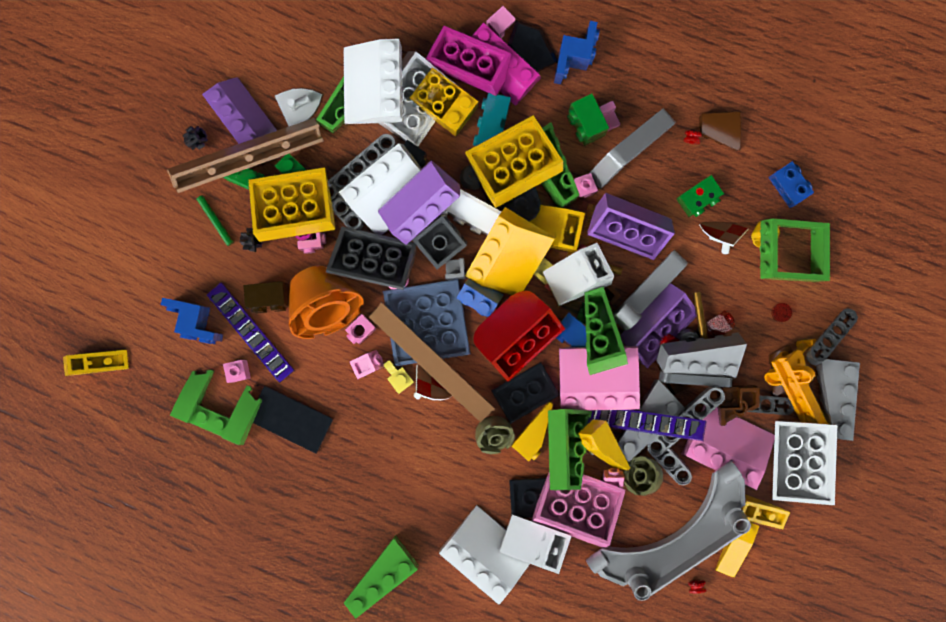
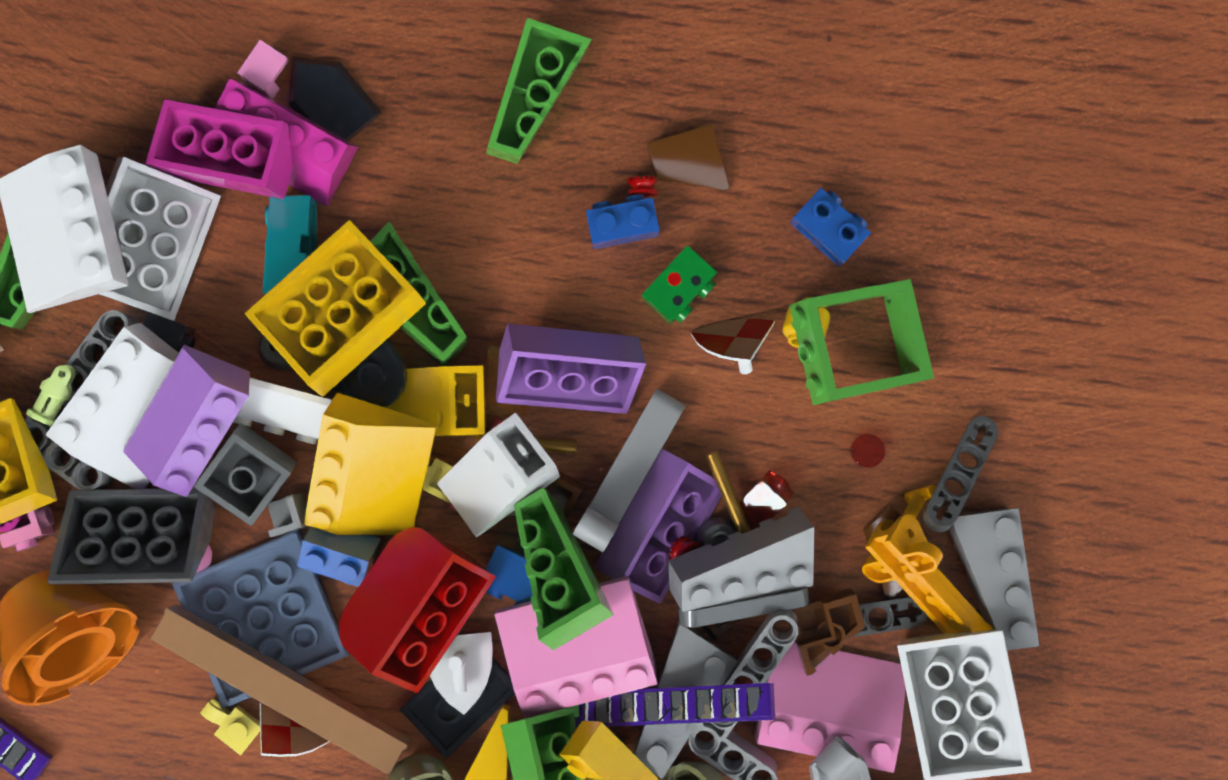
camera: 15 degrees left, 0 degrees up
(348, 168) = (53, 394): none -> yellowish green piece
(367, 364) = (173, 716): bright pink bracket -> none
(368, 326) = (132, 667): bright pink brick -> none
(444, 101) = (199, 230): yellow slope -> none
(532, 378) = (464, 670): none -> white shield
(576, 52) = (404, 91): blue bracket -> none
(586, 185) = (475, 317): bright pink bracket -> none
(587, 120) = (450, 198): green brick -> none
(609, 115) = (488, 187): bright pink panel -> none
(631, 147) = (537, 230): light grey beam -> none
(648, 64) = (537, 78): none -> bright green wedge
(677, 154) = (622, 222): none -> blue brick

